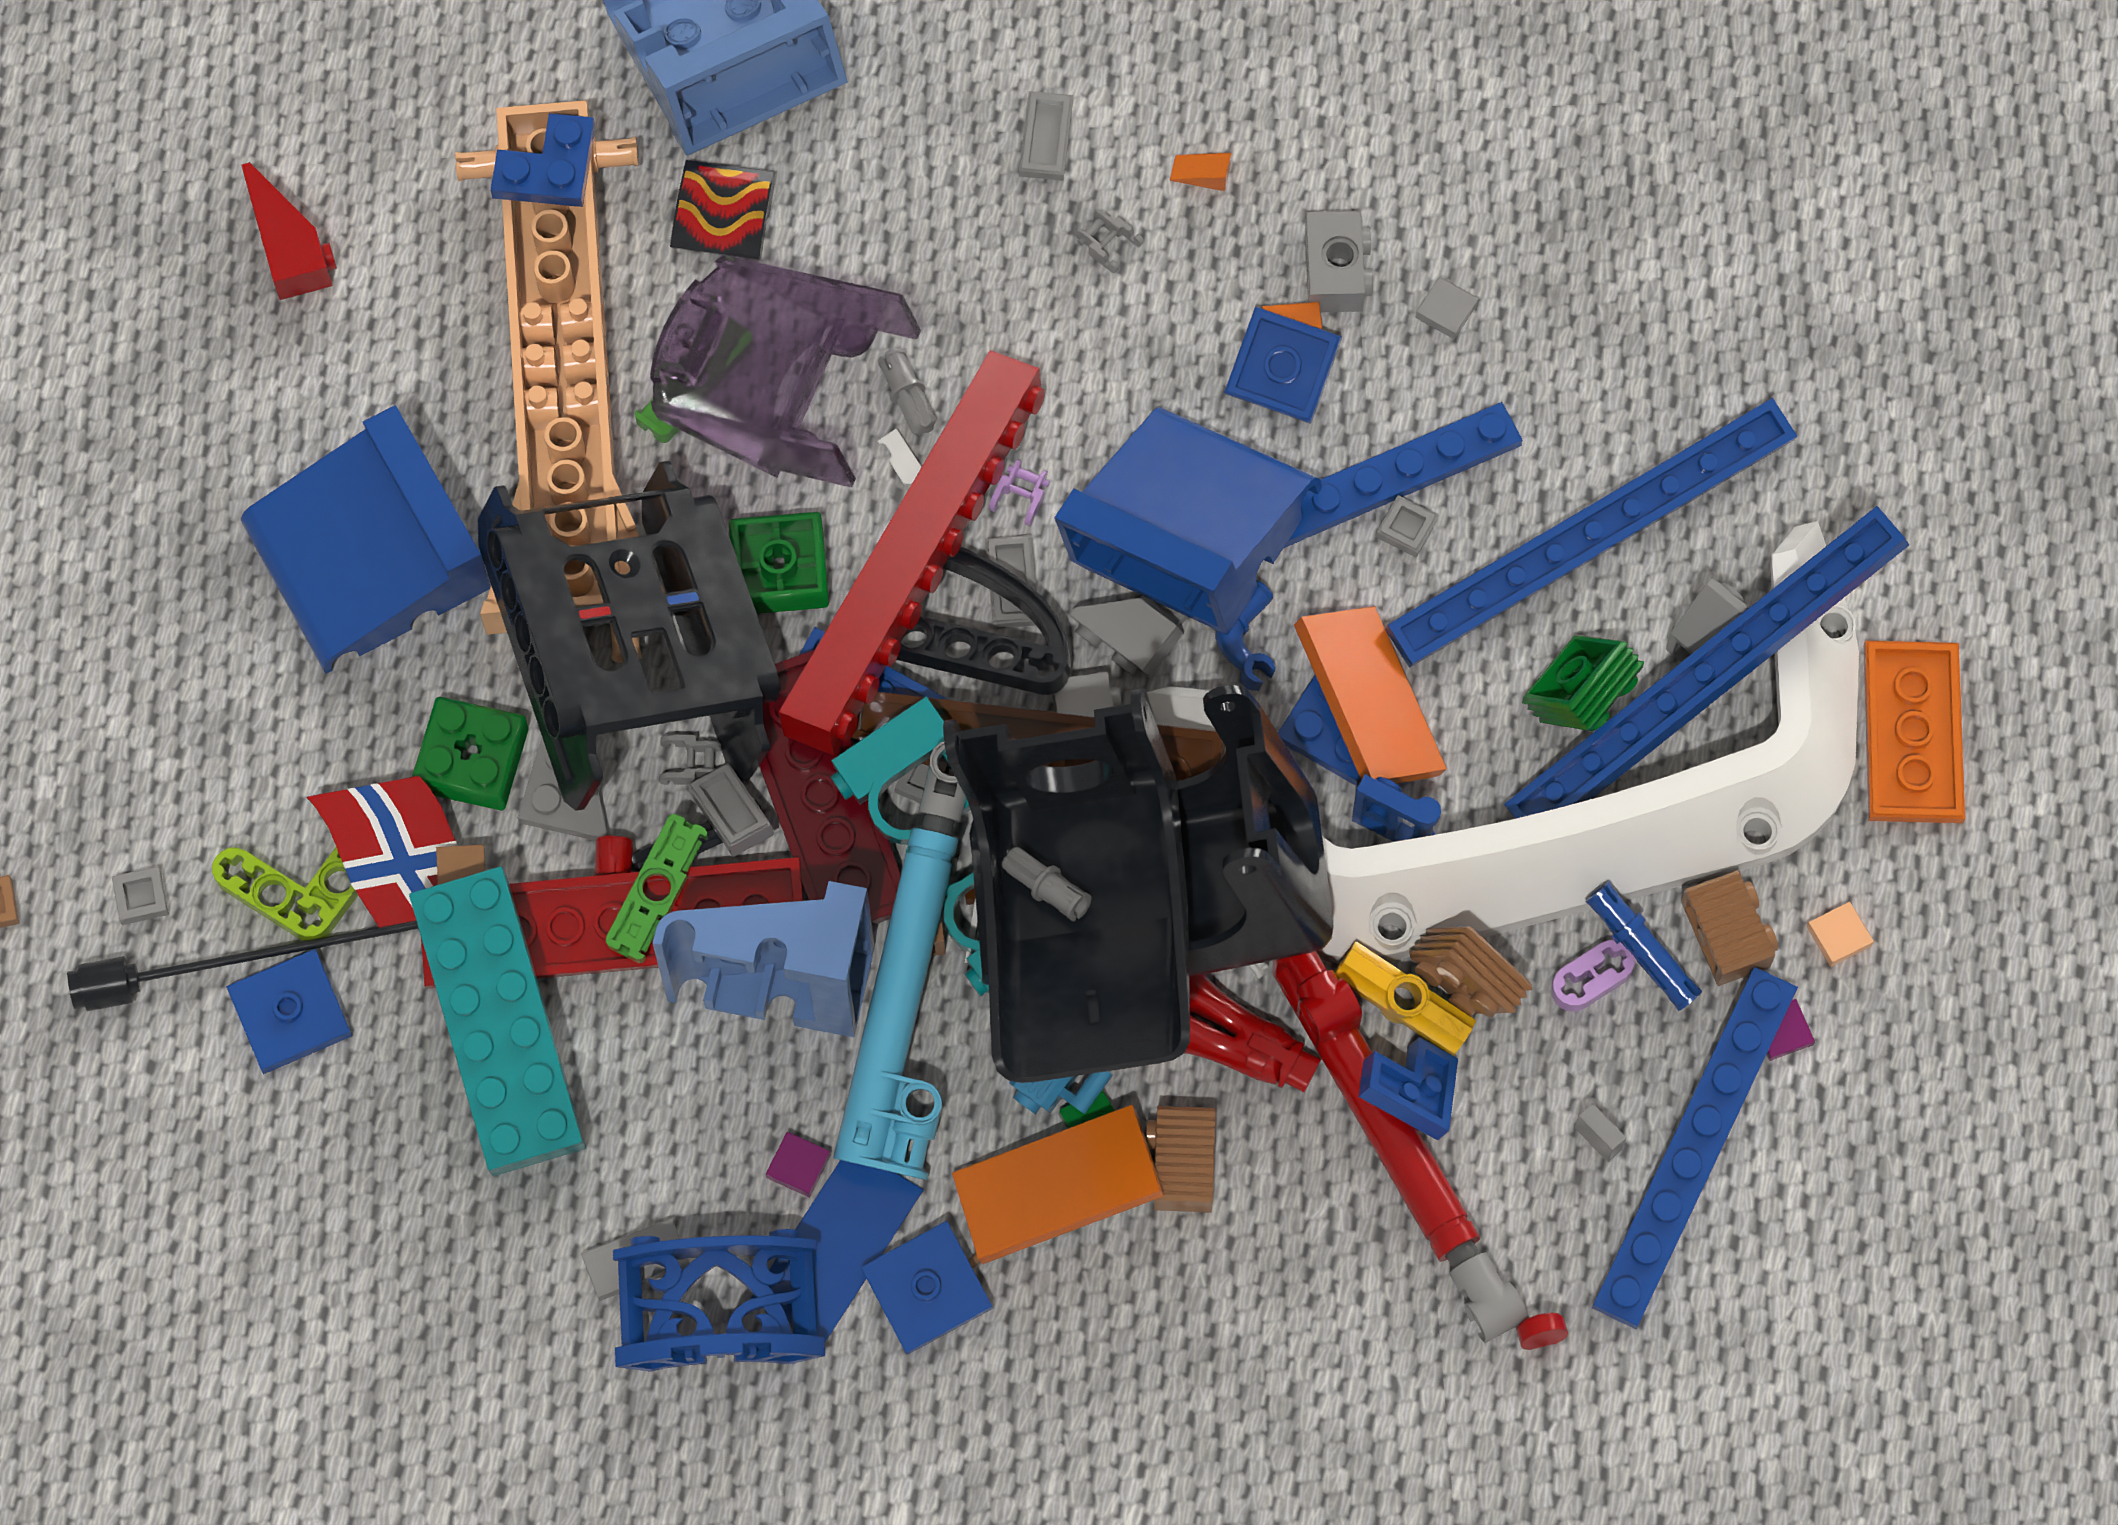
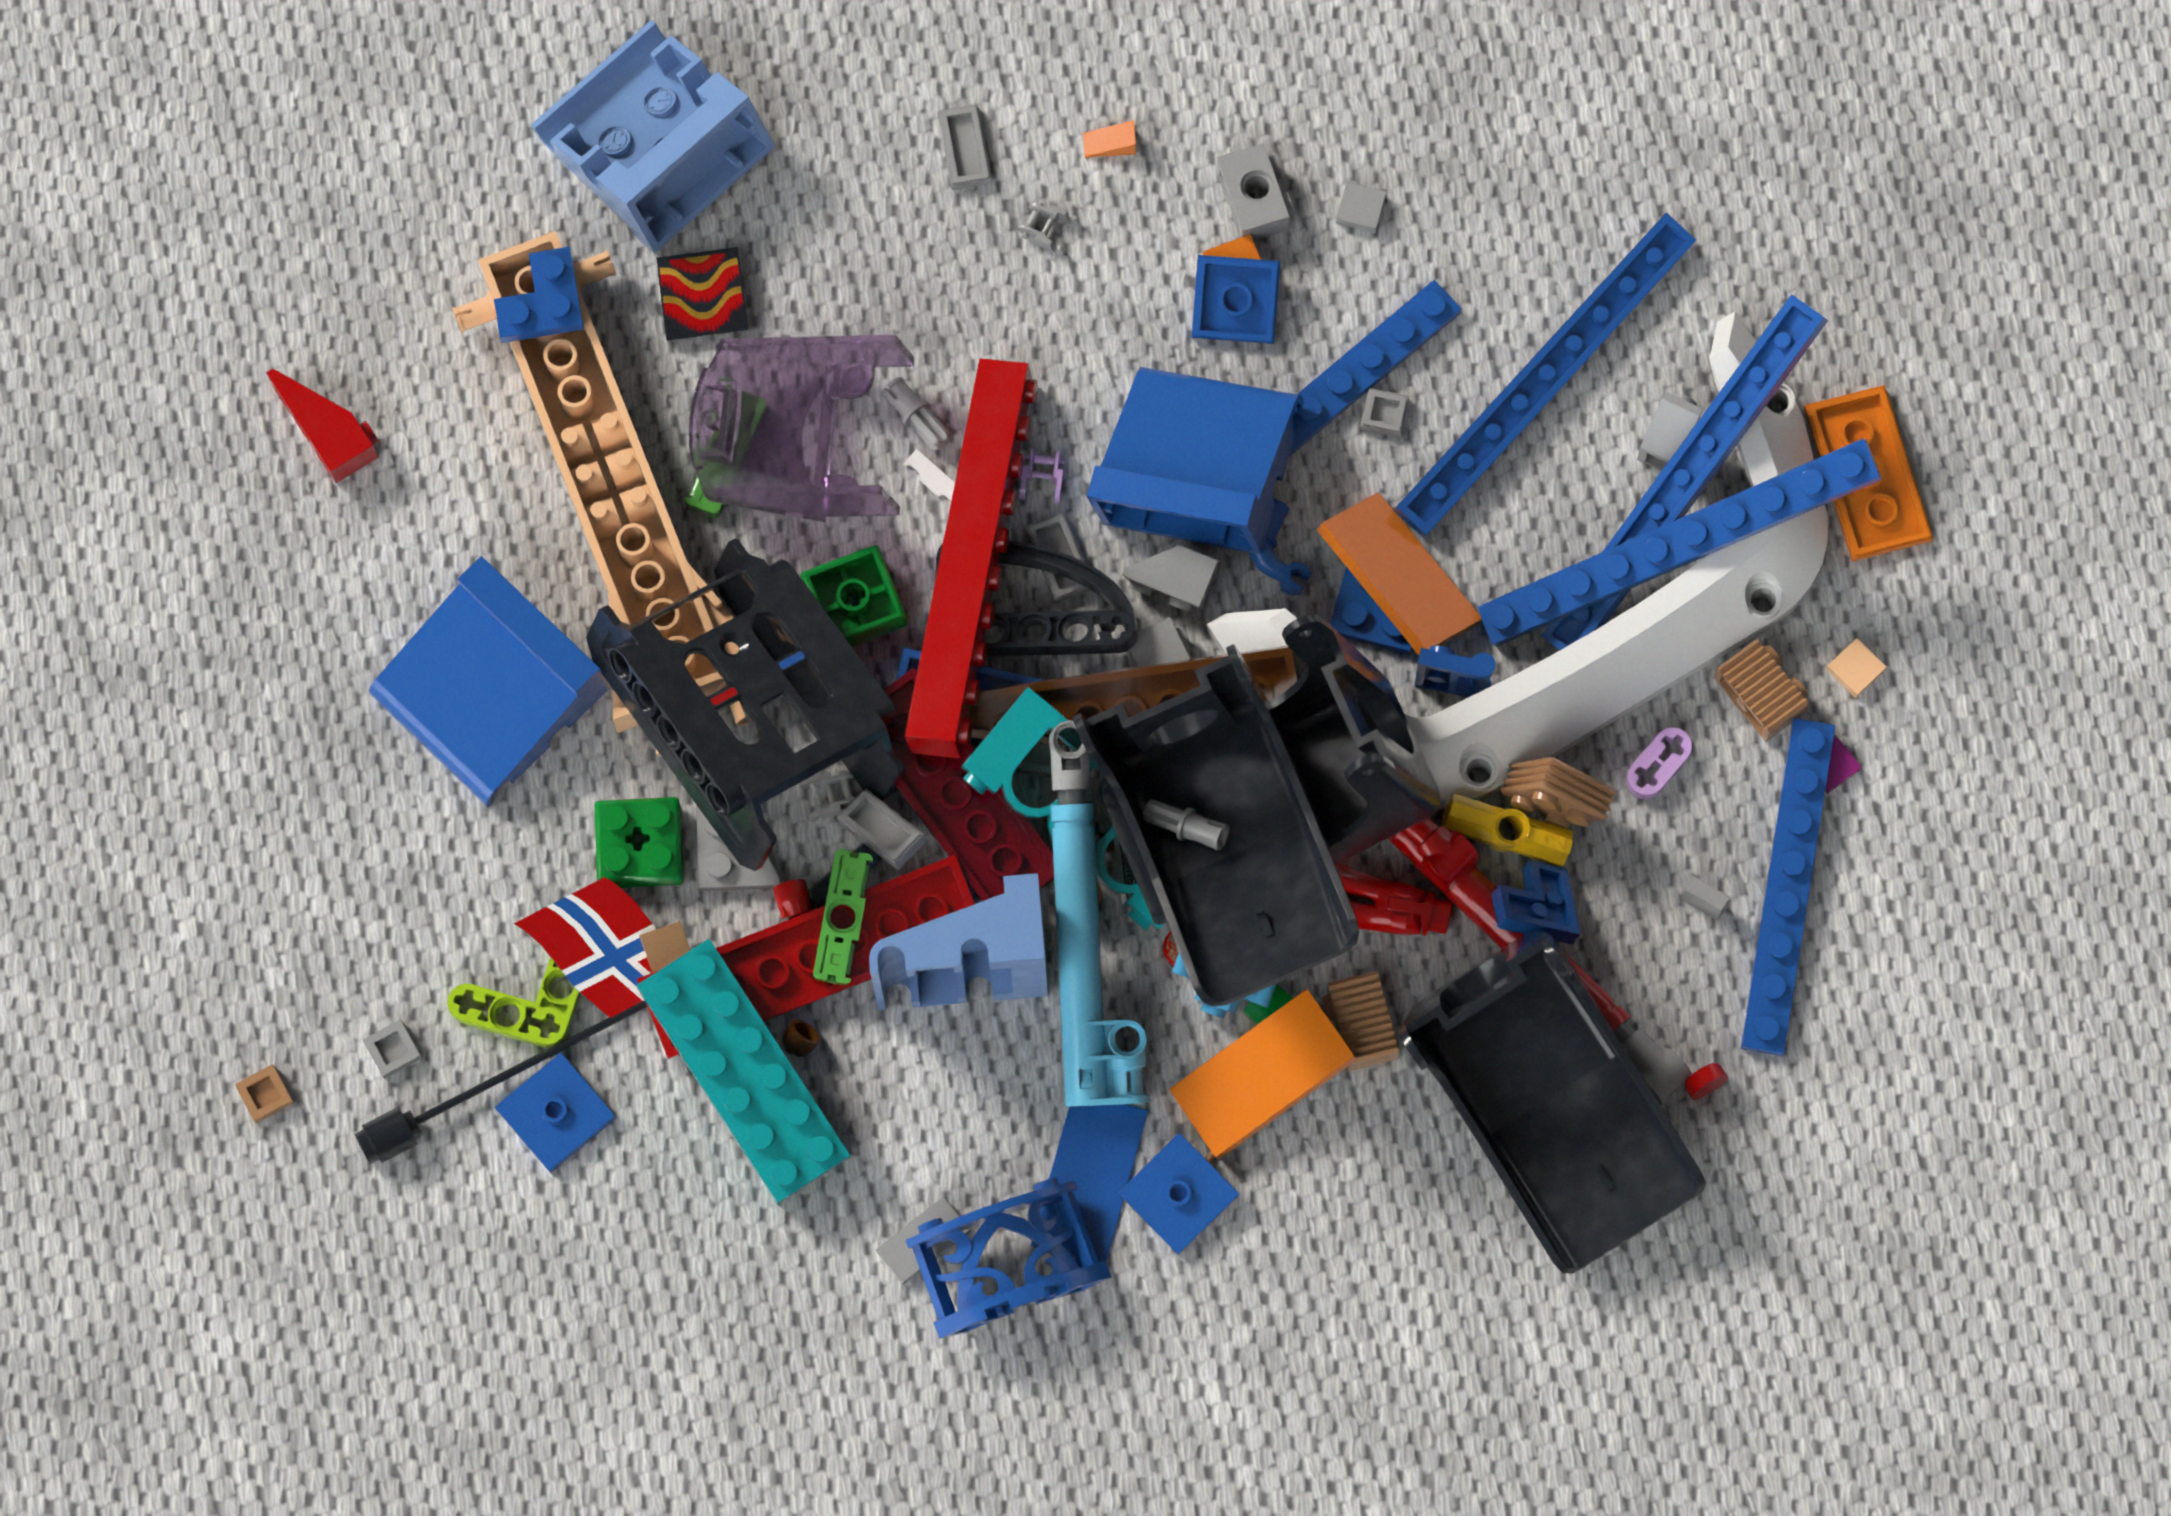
camera: 15 degrees left, 5 degrees up
(573, 1006) = (800, 1038): none -> reddish brown hinge
(798, 1164) = (1035, 1119): magenta tile -> none
(1363, 1301) = (1553, 1100): none -> black piece
(1584, 683) = (1579, 512): green brick -> none
(1645, 948) = (1687, 721): blue pin -> none
(1682, 740) = (1680, 542): none -> blue plate

